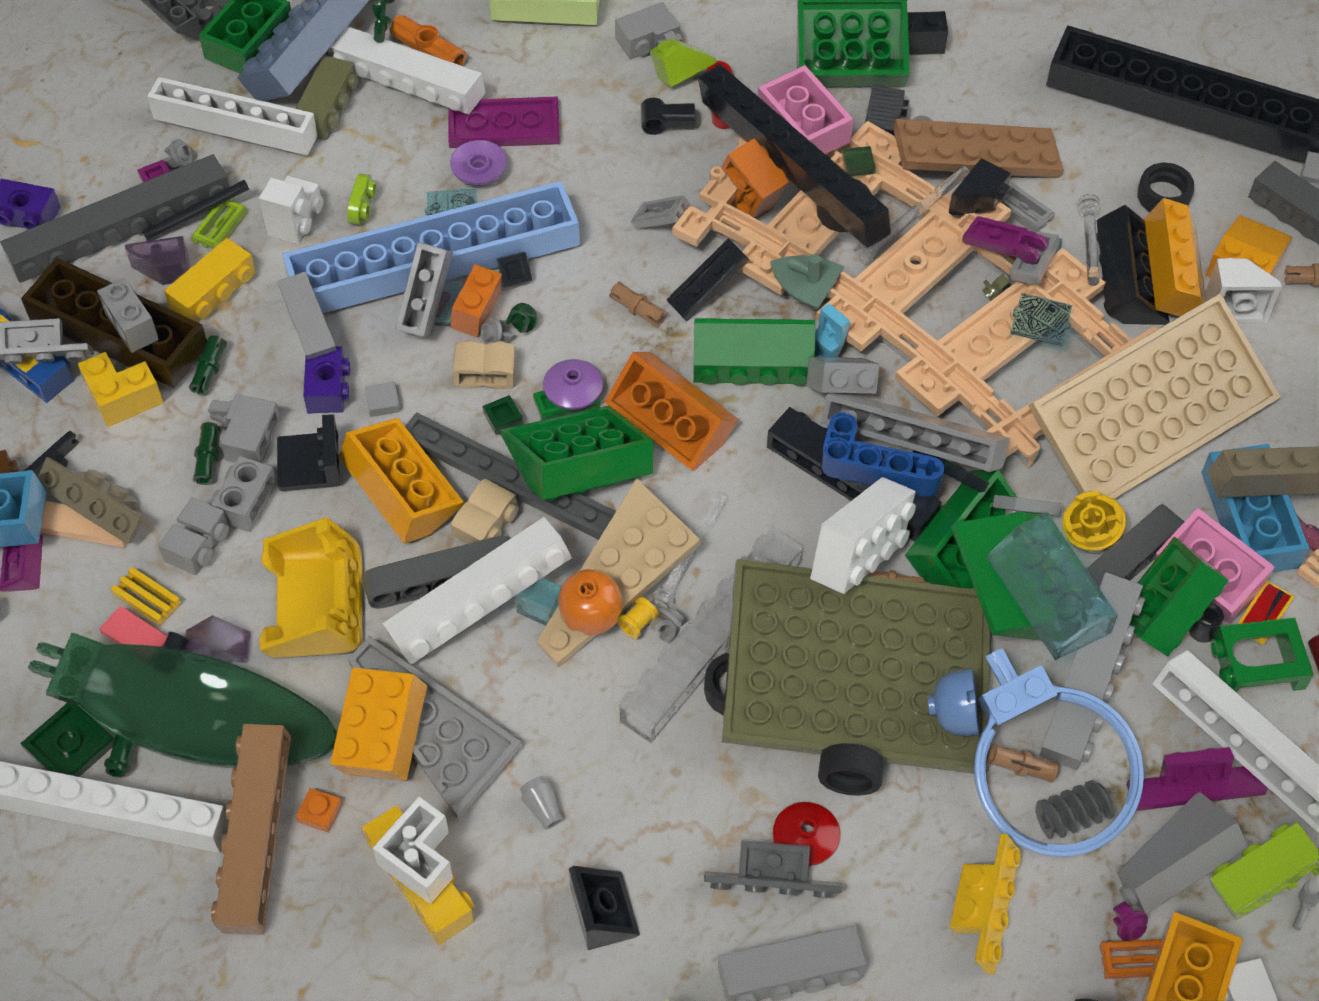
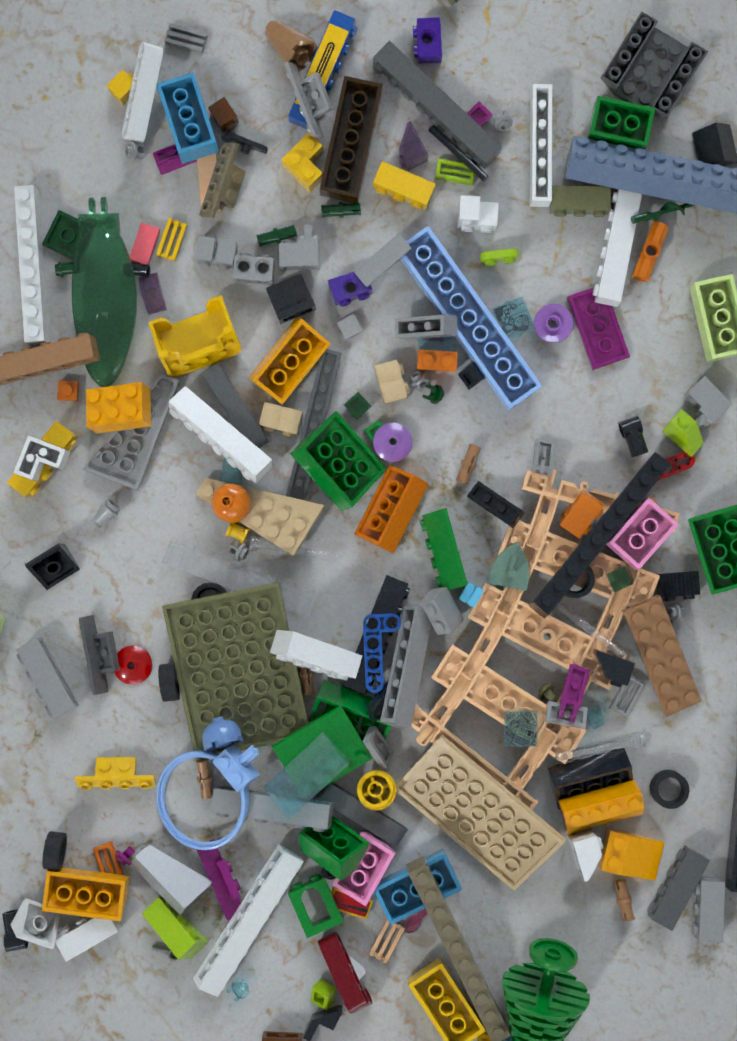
camera: 75 degrees right, 30 degrees up
(128, 315) = (343, 150): light grey brick -> none
(1073, 807) = (183, 813): dark grey piece -> none

